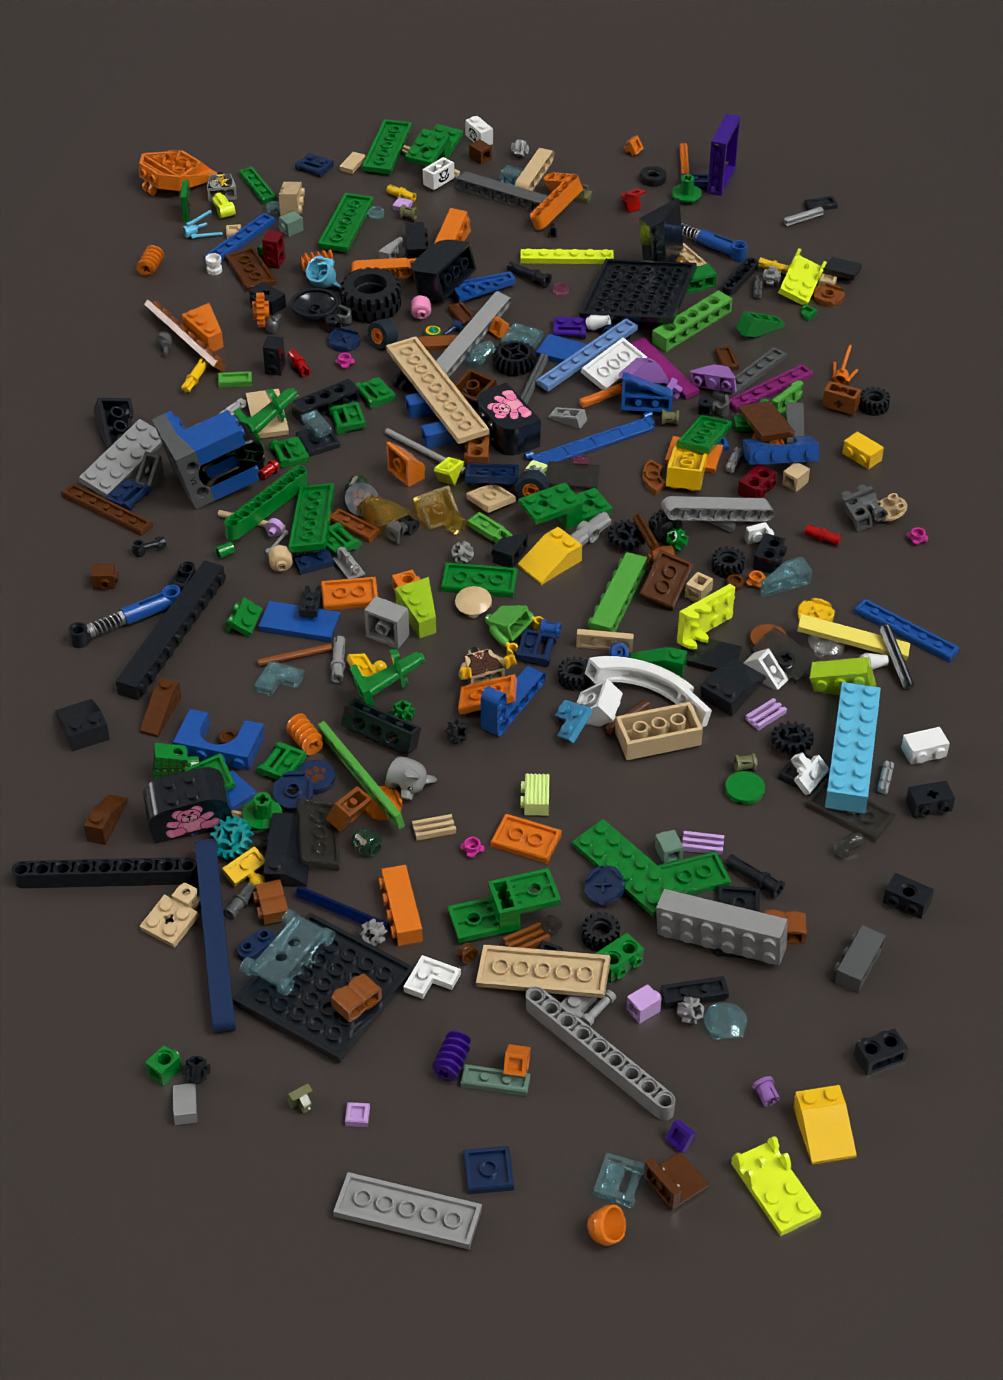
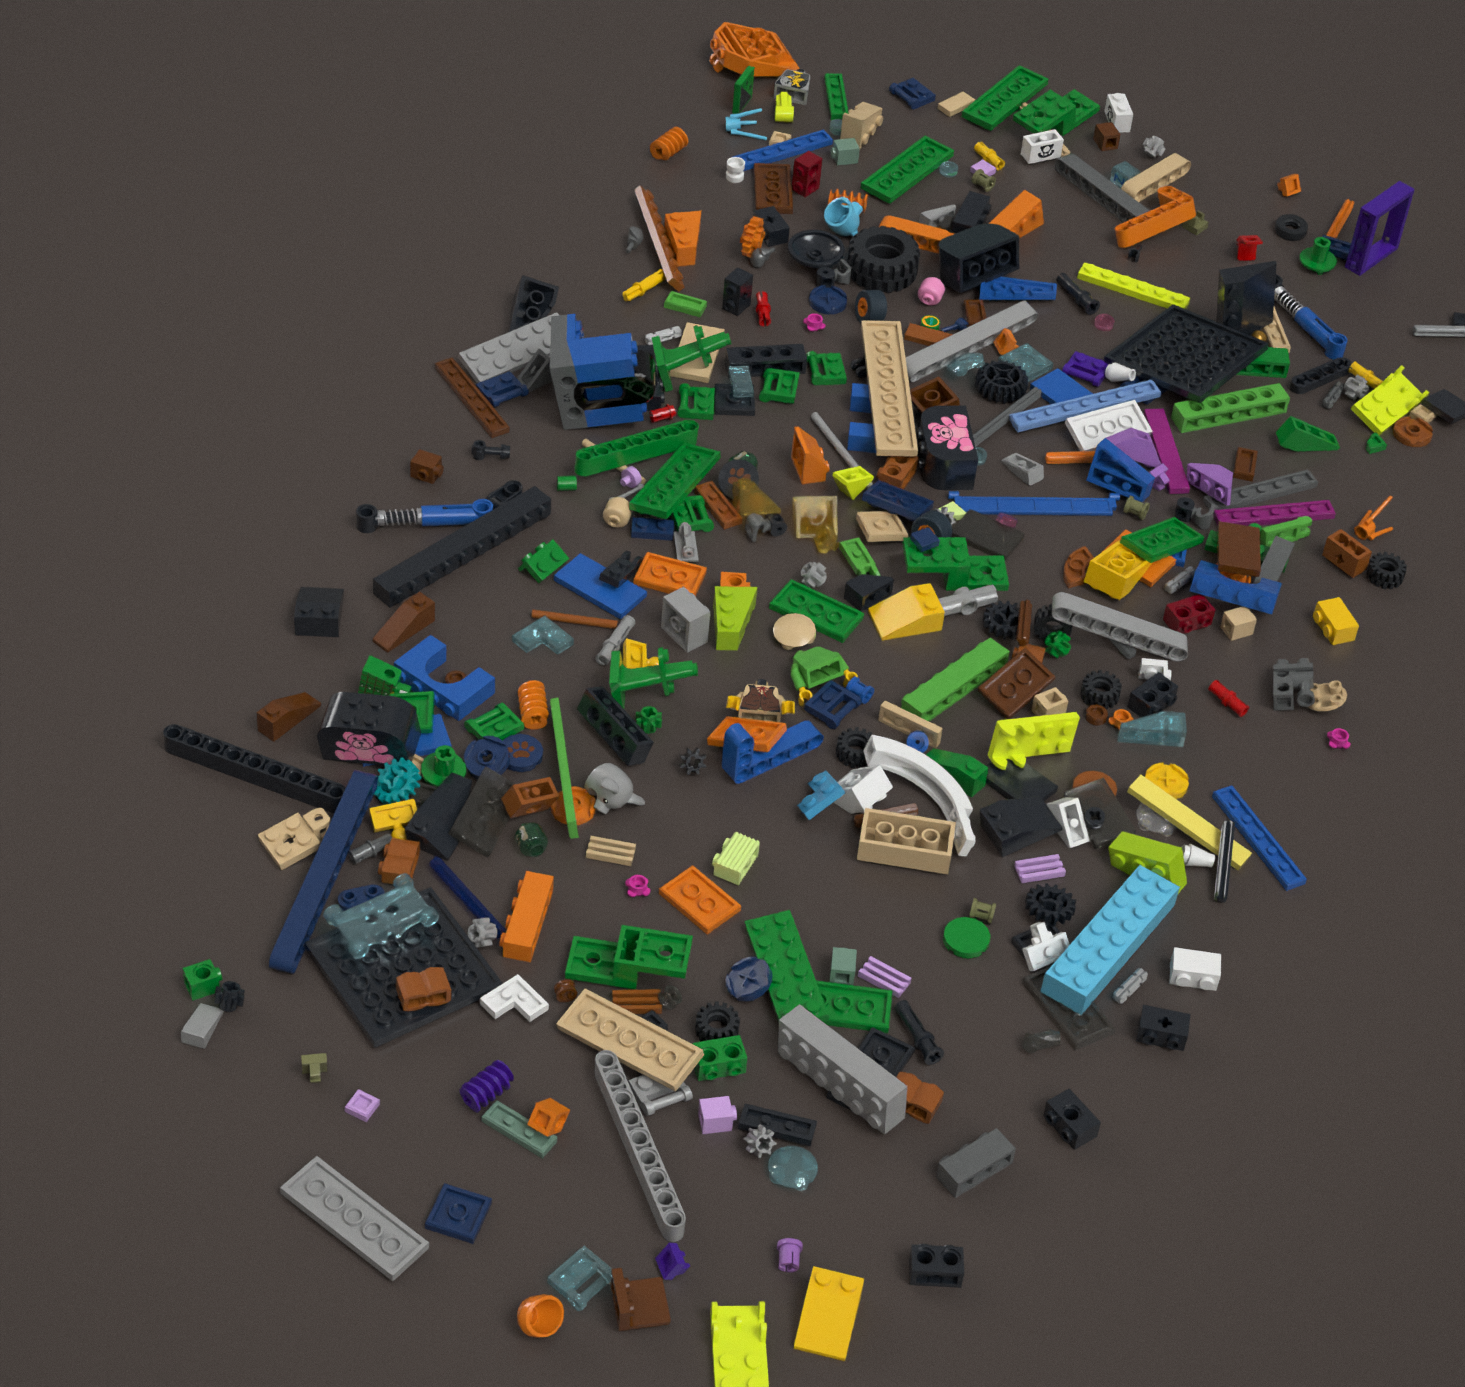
camera: 20 degrees right, 0 degrees up
(538, 494) = (925, 539): none -> dark blue tile

